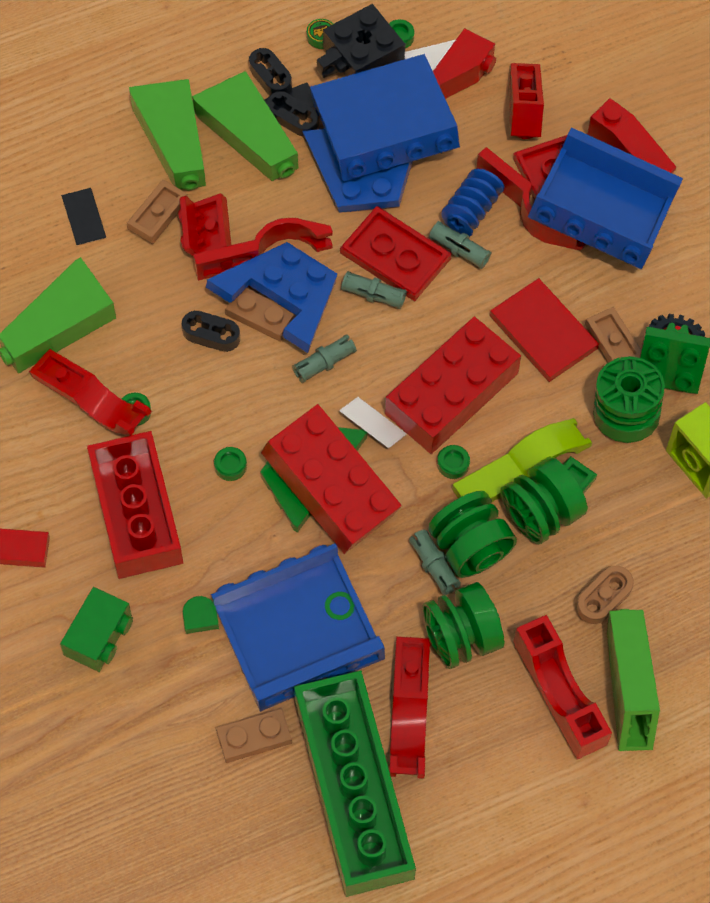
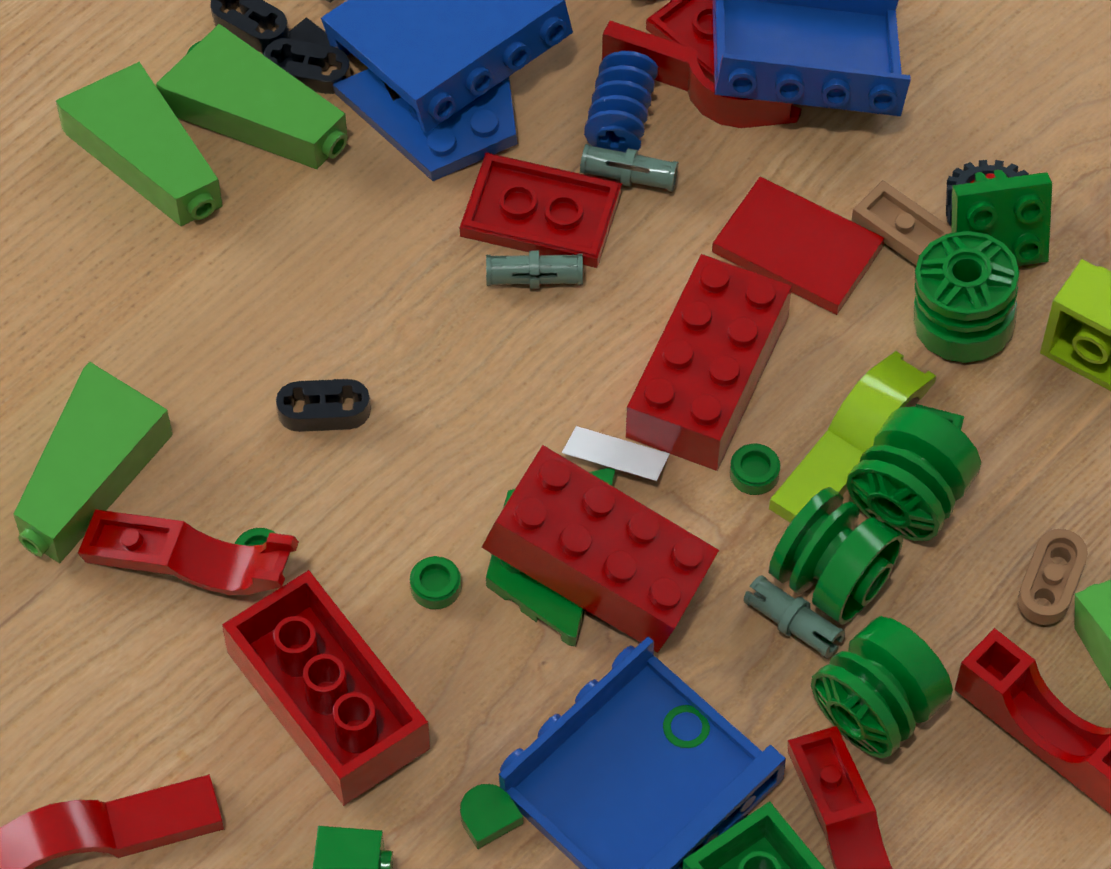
camera: 20 degrees left, 5 degrees down
(83, 216) = (60, 307): black sticker -> none
(156, 211) = (170, 263): medium nougat plate -> none
(204, 224) = (253, 261): red bracket -> none
(218, 260) = (330, 279): red piece -> none
(260, 313) = (384, 356): medium nougat plate -> none
(289, 280) = (409, 296): blue wing -> none
(324, 358) = (506, 388): sand green pin -> none

